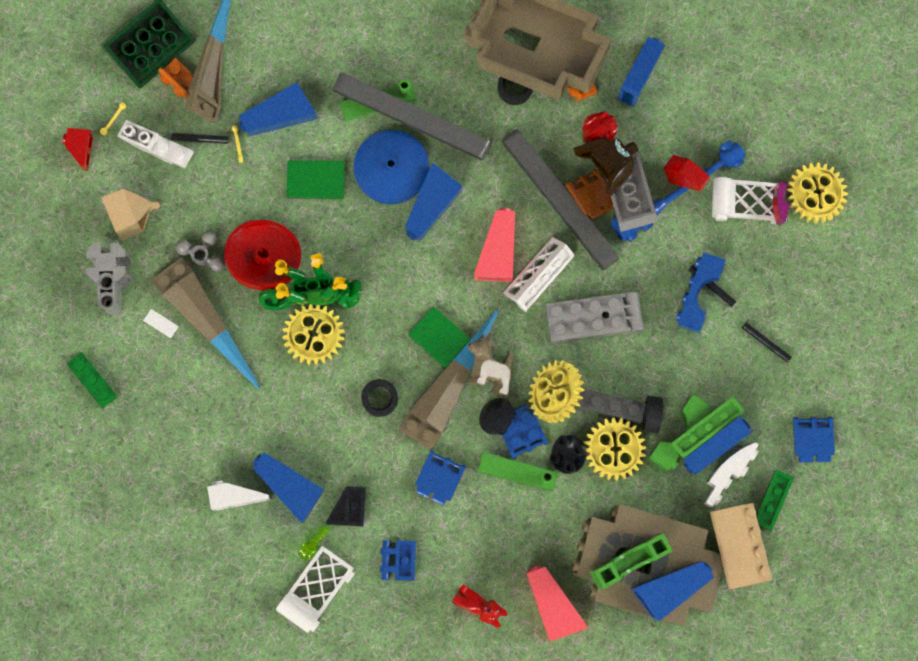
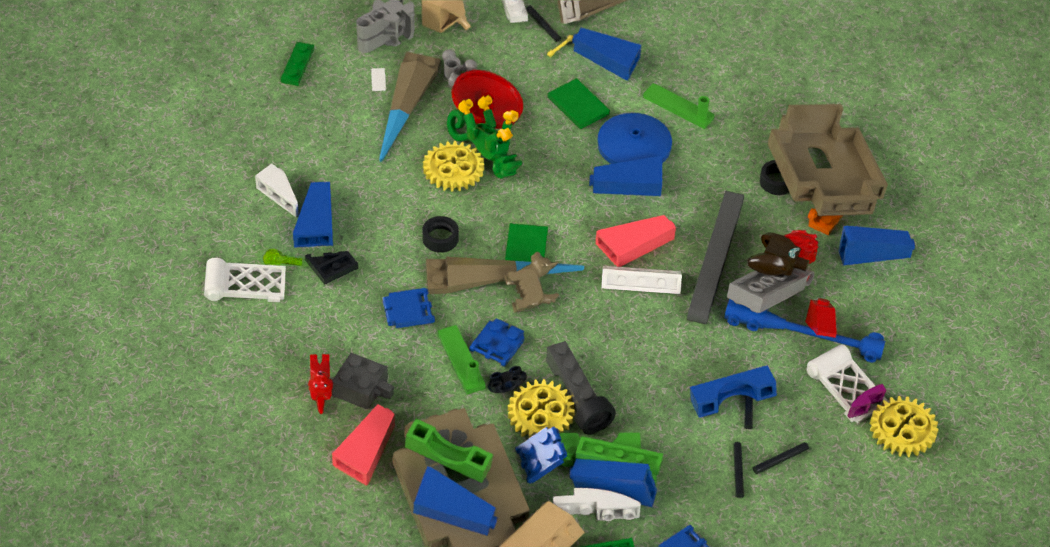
camera: 55 degrees right, 30 degrees down
(404, 563) = (317, 325): blue plate -> none
(411, 116) = (686, 127): dark grey beam -> none
(491, 567) = (361, 381): none -> dark grey hinge
(496, 416) = (494, 313): black dish -> none
(556, 391) = (551, 334): light yellow gear -> none
(584, 319) = (640, 333): light grey hinge -> none
(591, 195) = (734, 267): dark orange plate -> none
(657, 480) = (542, 453): none -> blue plate
(777, 303) = (780, 458): none -> black bar

